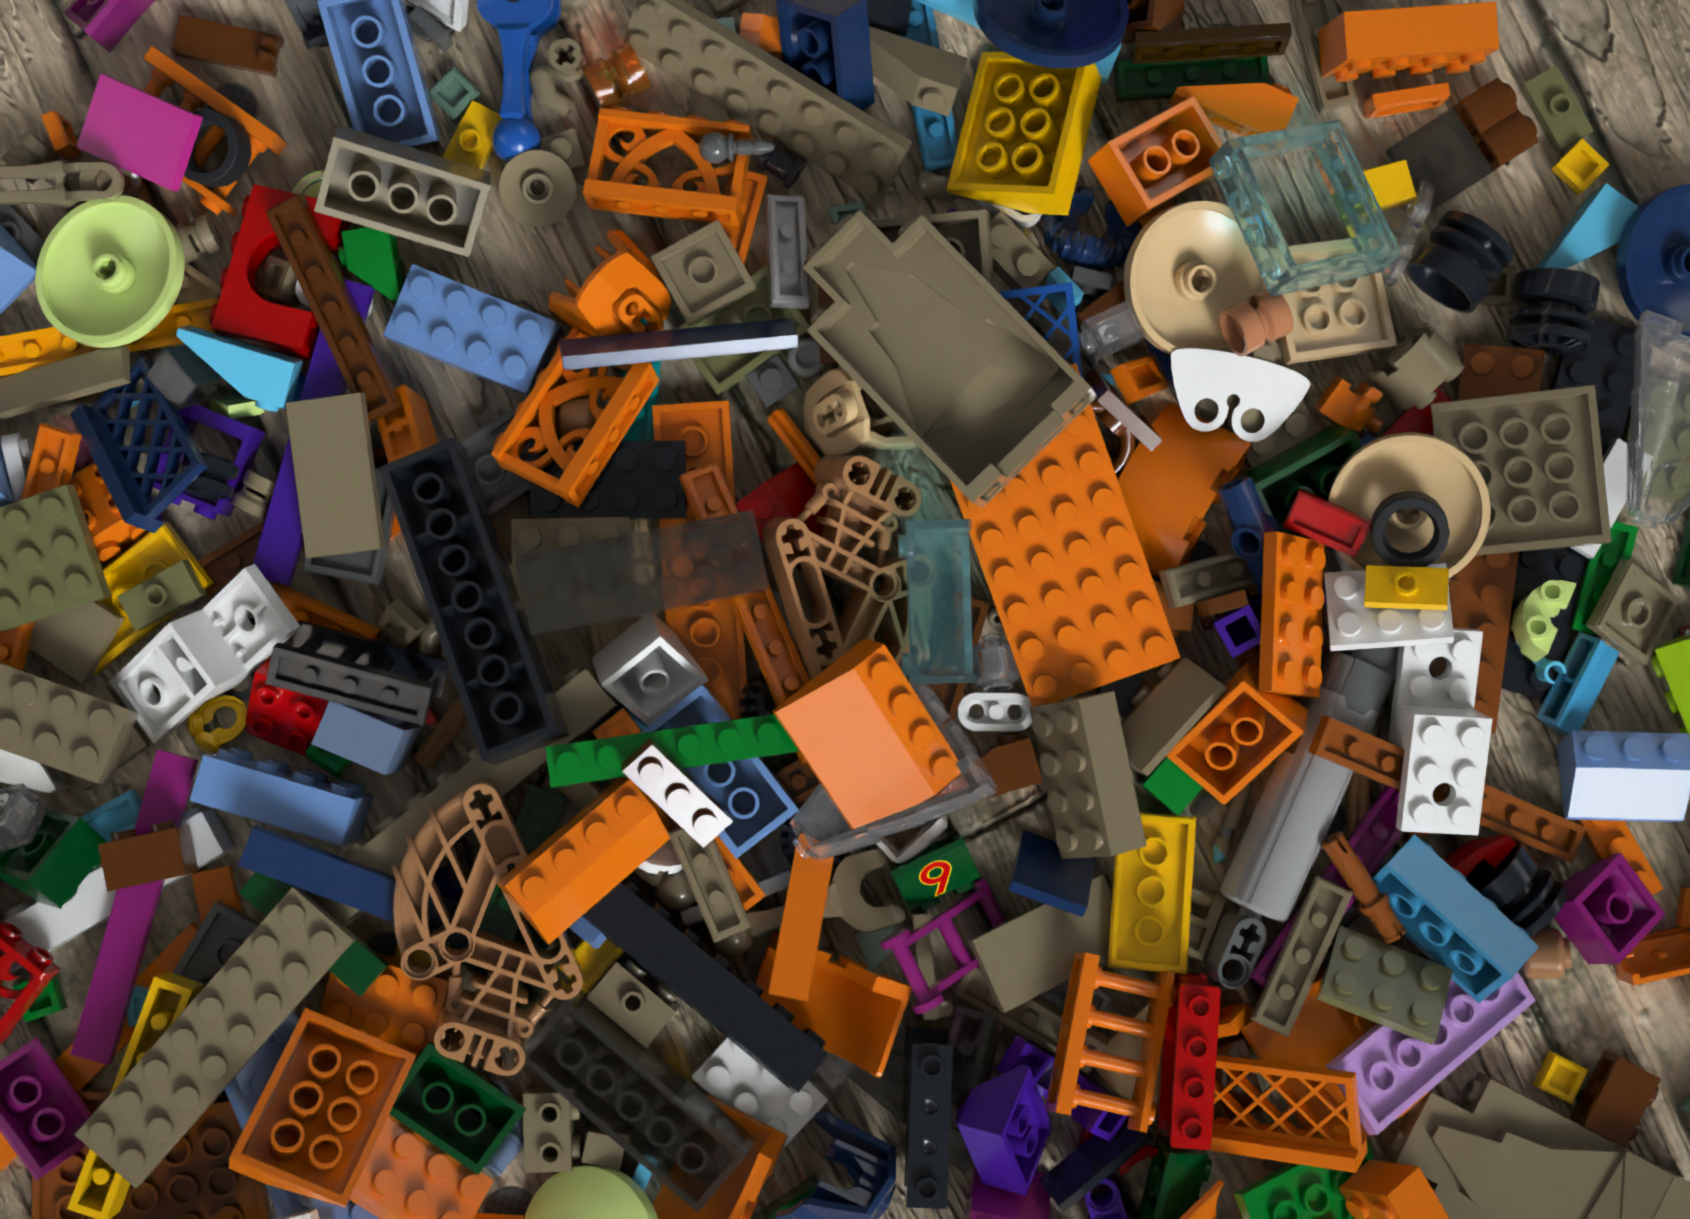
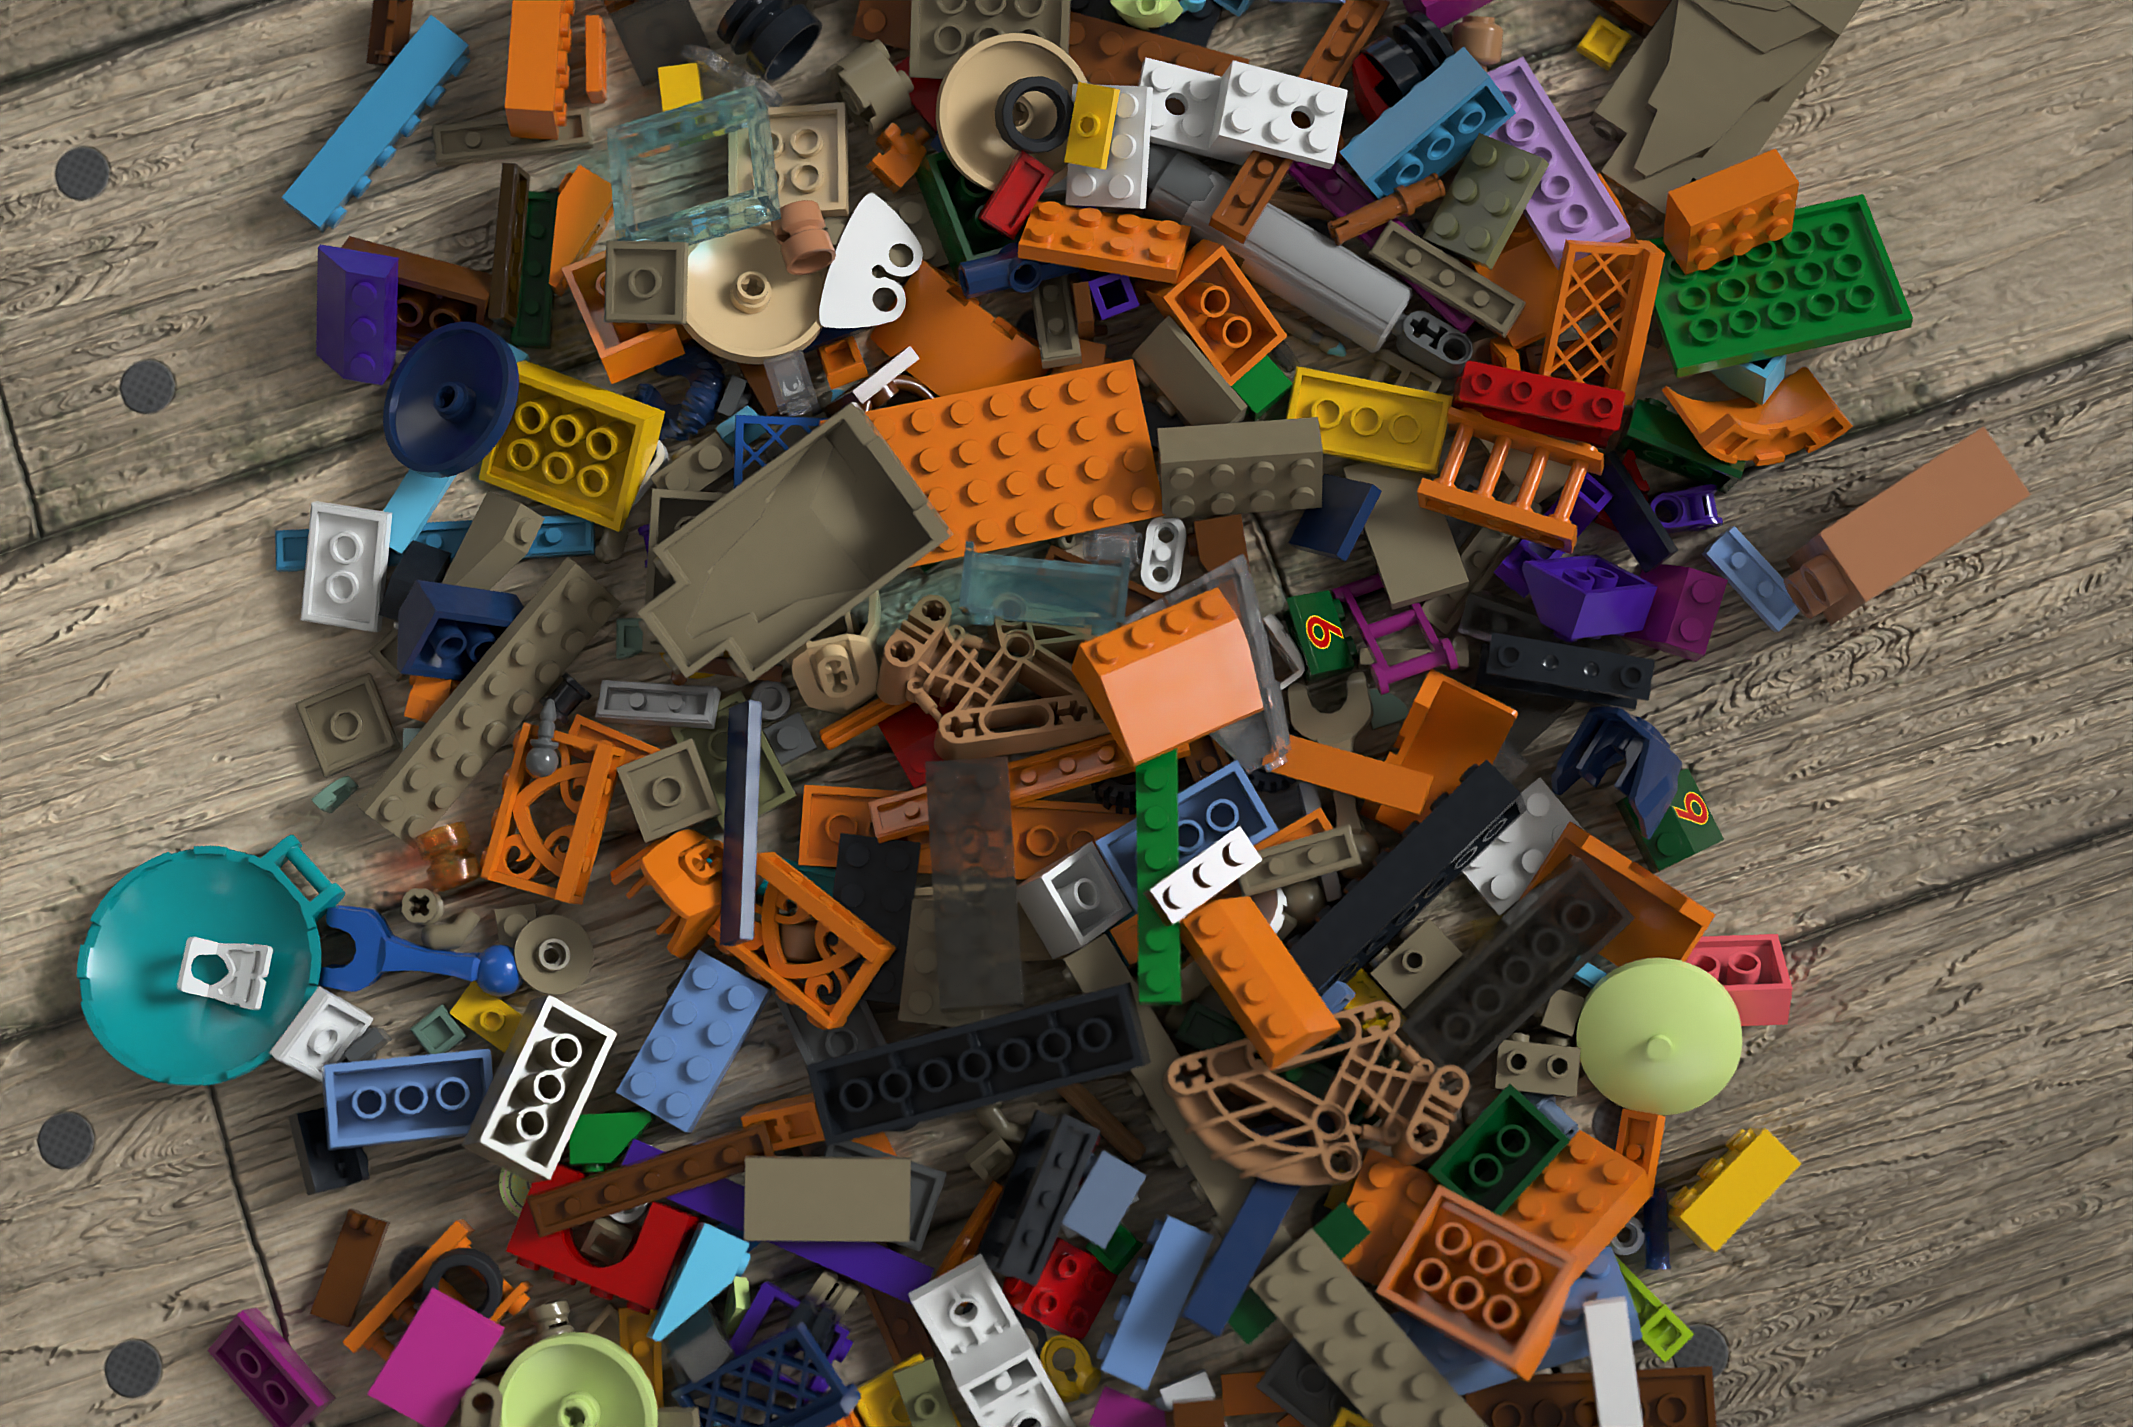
camera: 80 degrees left, 5 degrees down
(1189, 174) = (646, 282): none -> dark tan tile

